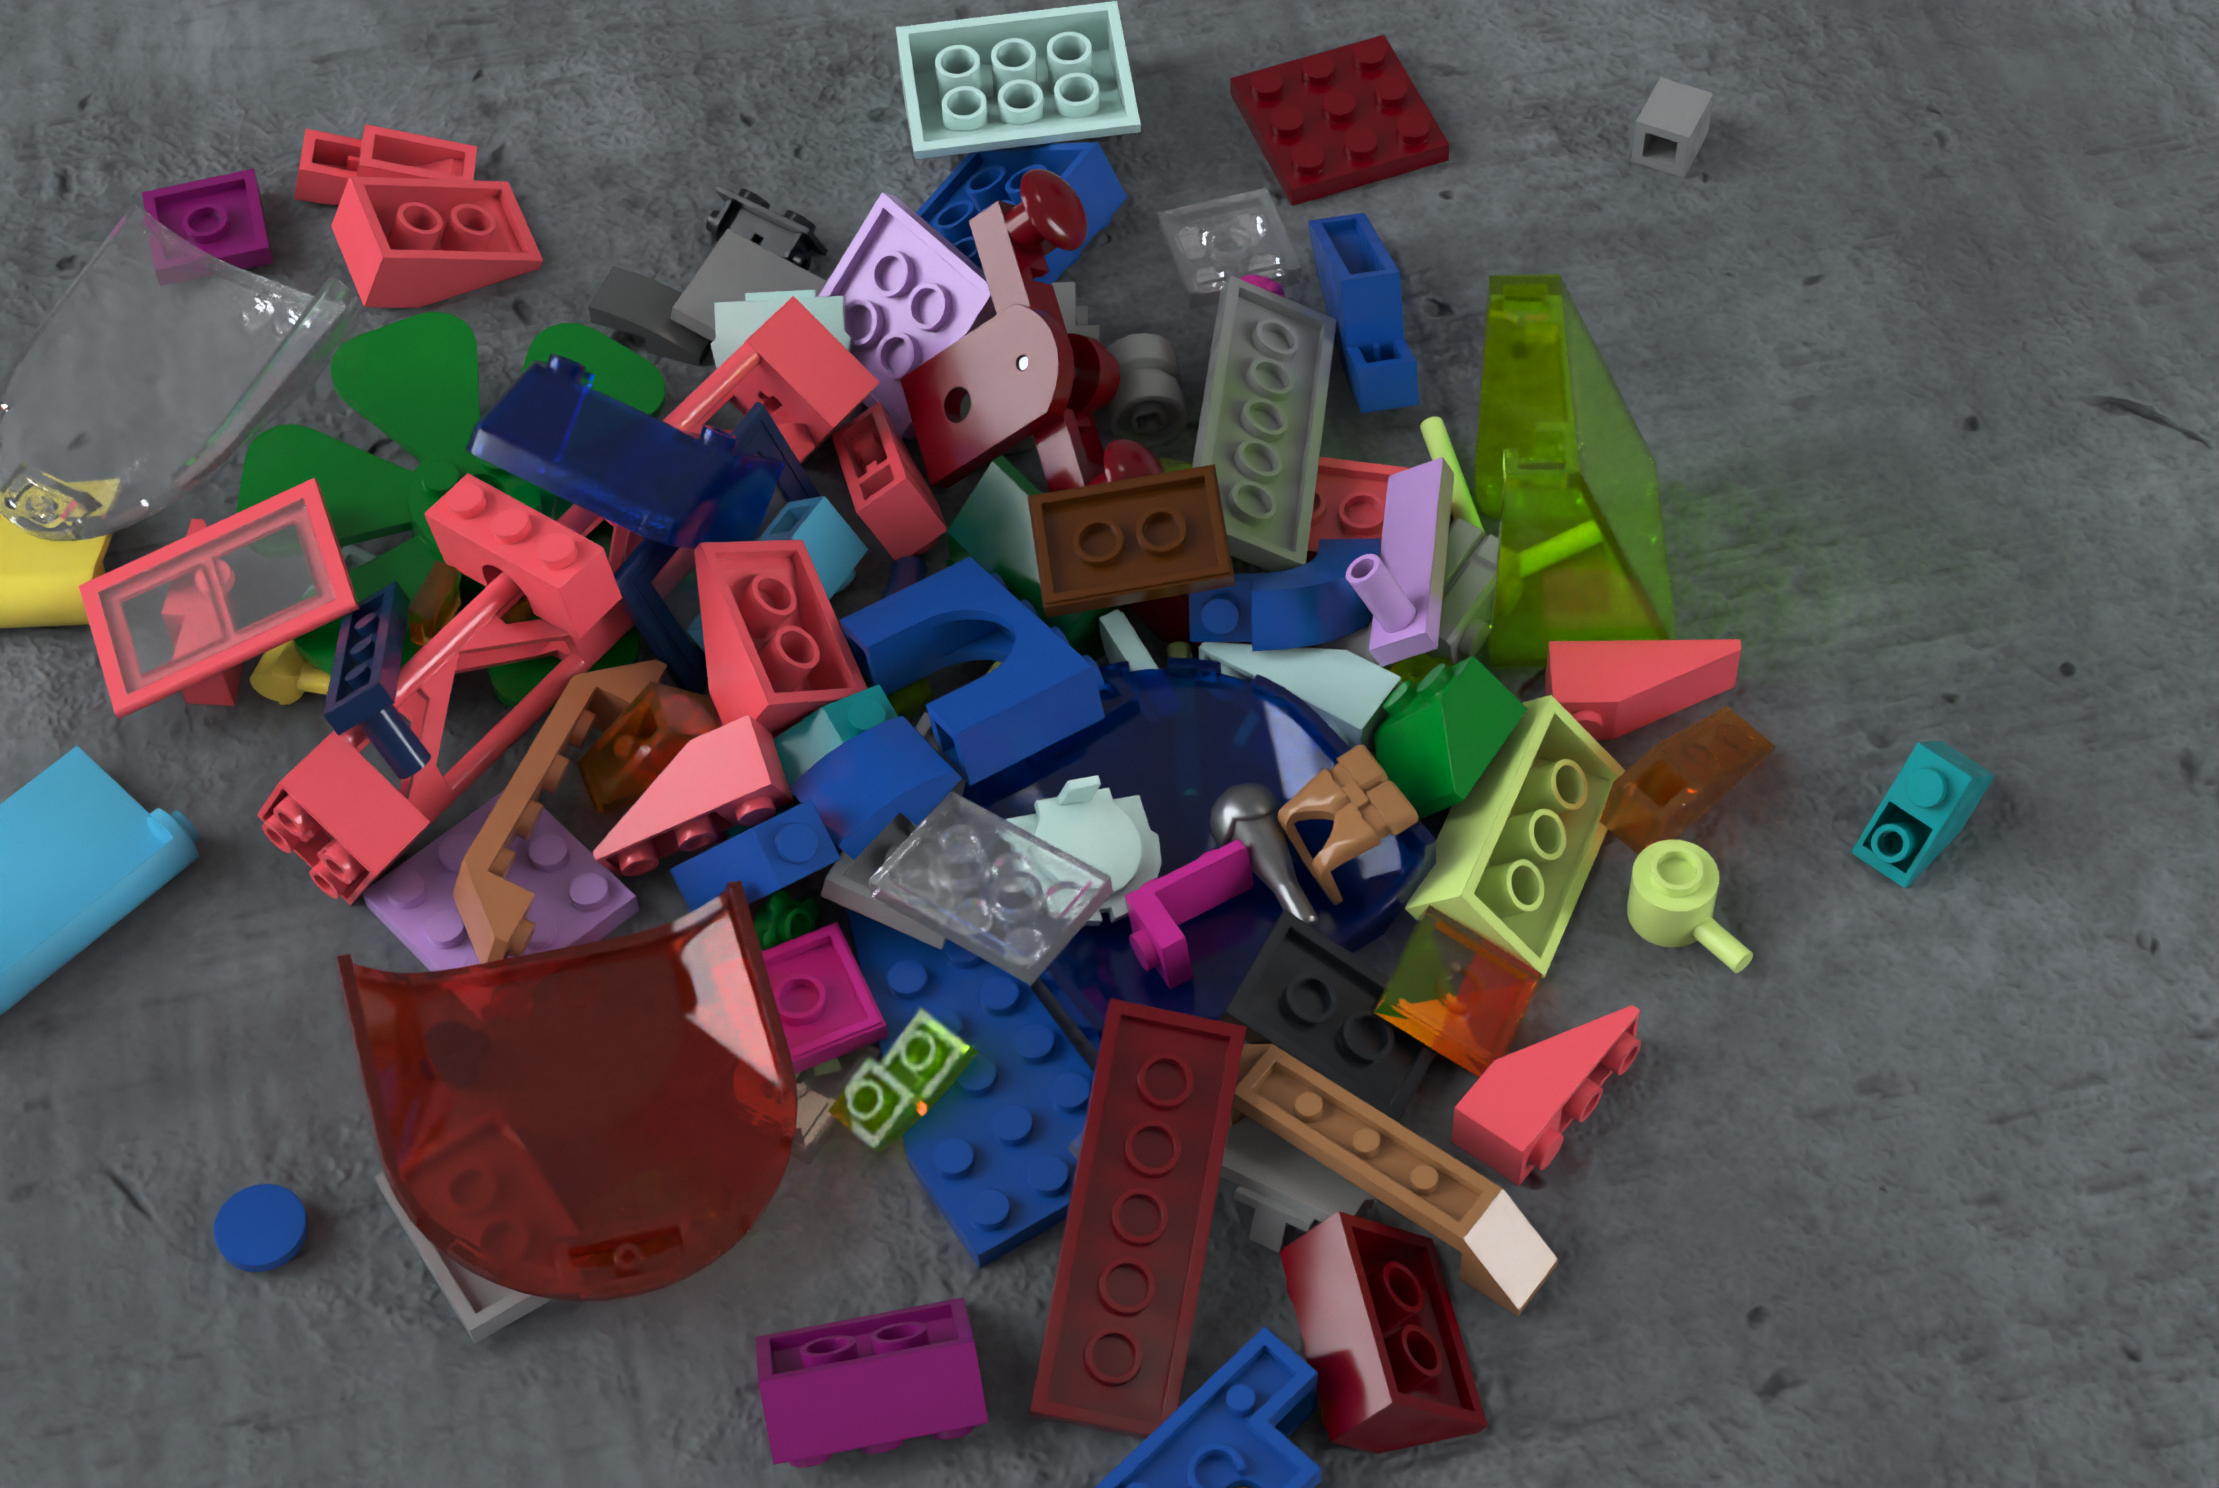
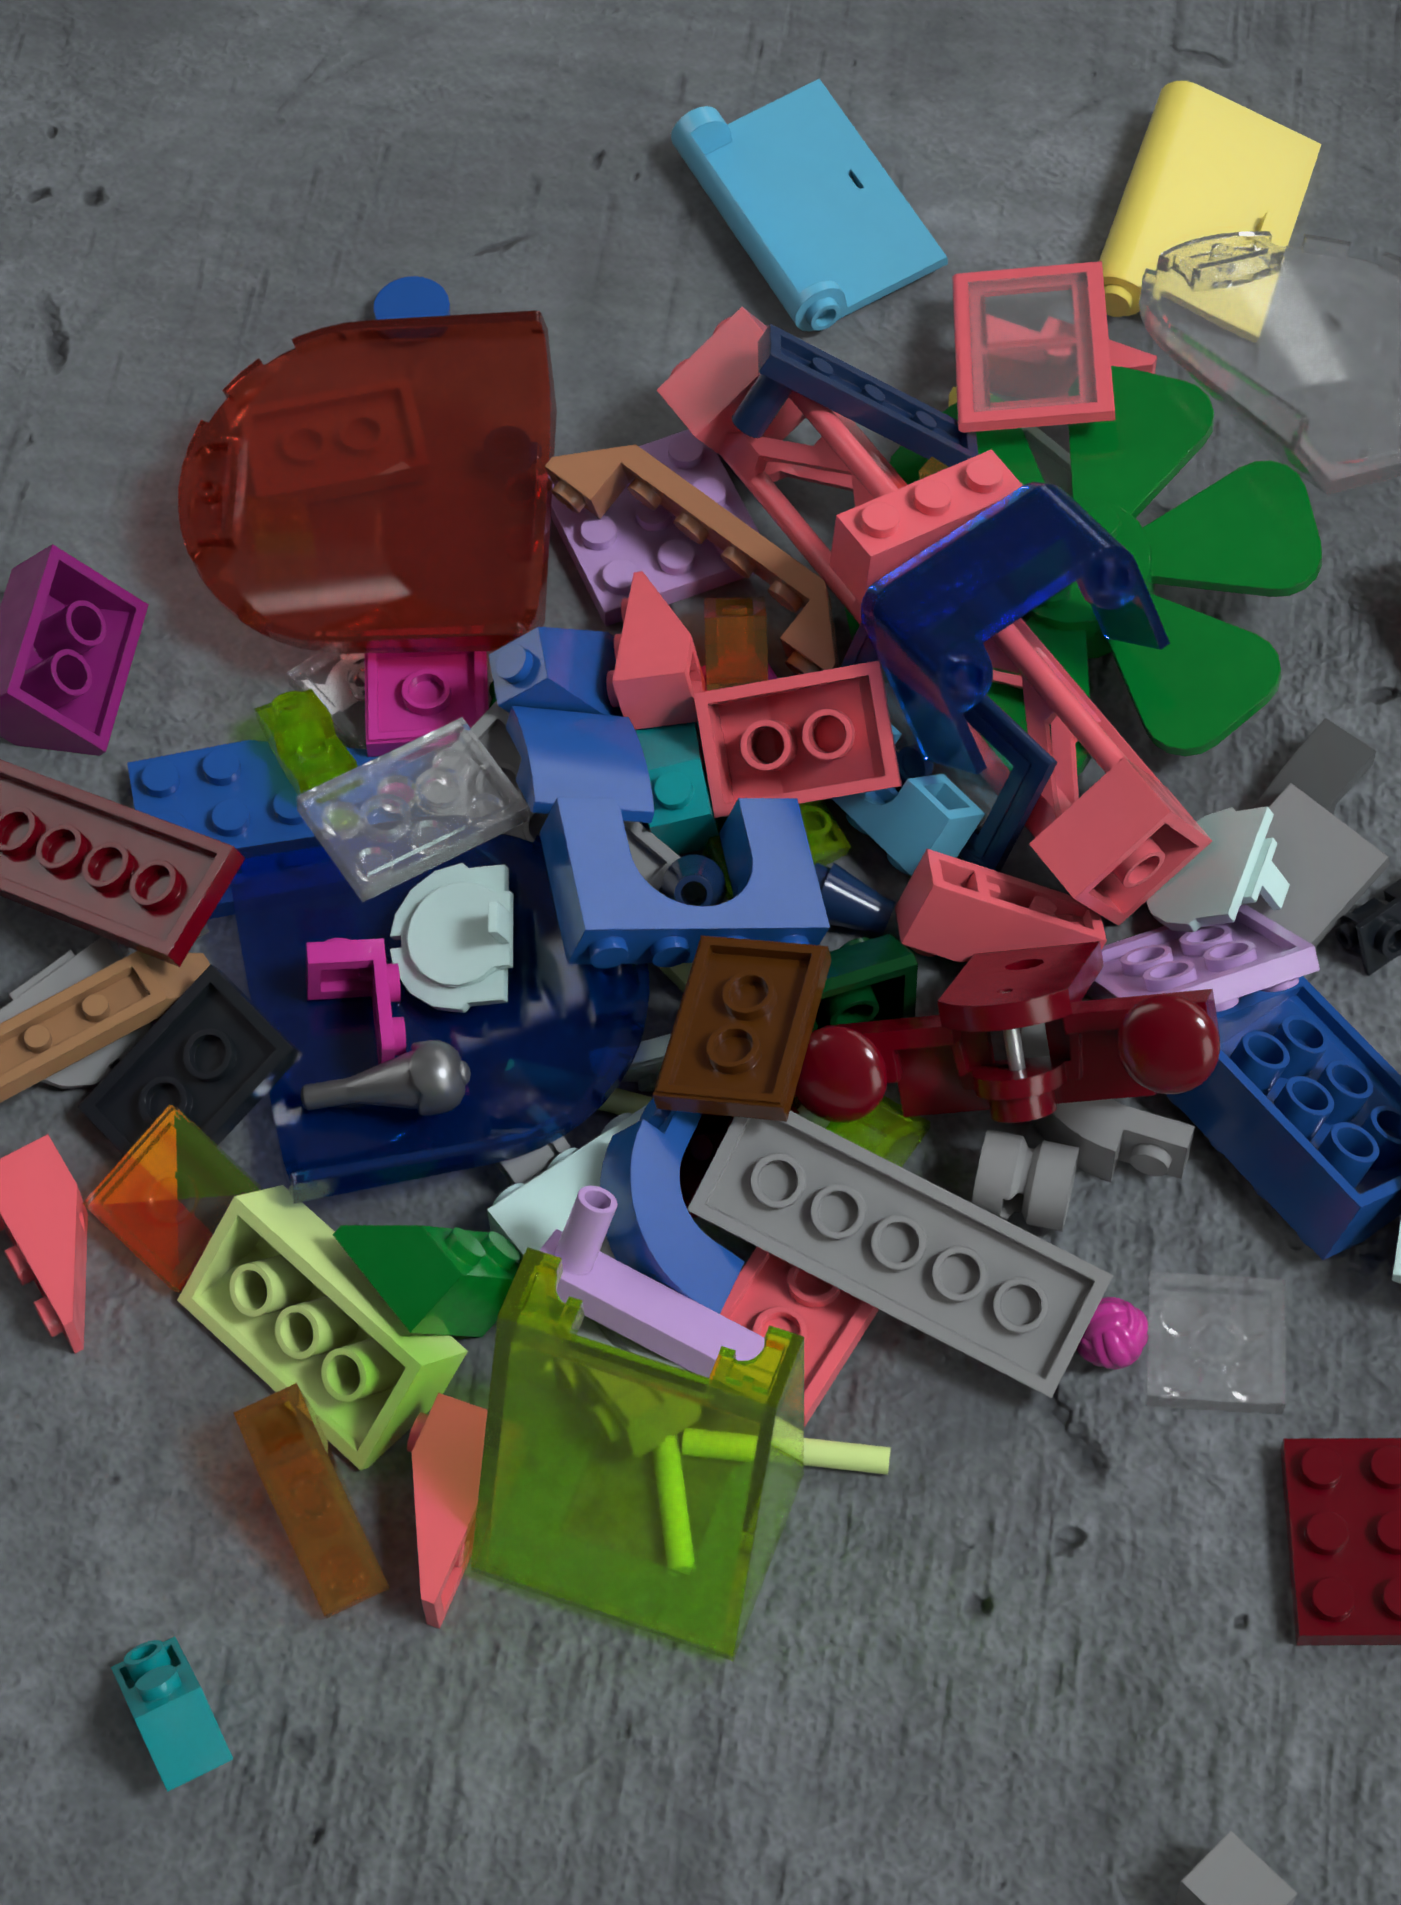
camera: 110 degrees right, 5 degrees up
(964, 666) = (697, 869): none -> dark blue cone
(1359, 803) = (379, 1139): medium nougat piece -> none
(1365, 297) = (1062, 1432): blue slope -> none
(1675, 901) = (188, 1437): yellowish green piece -> none

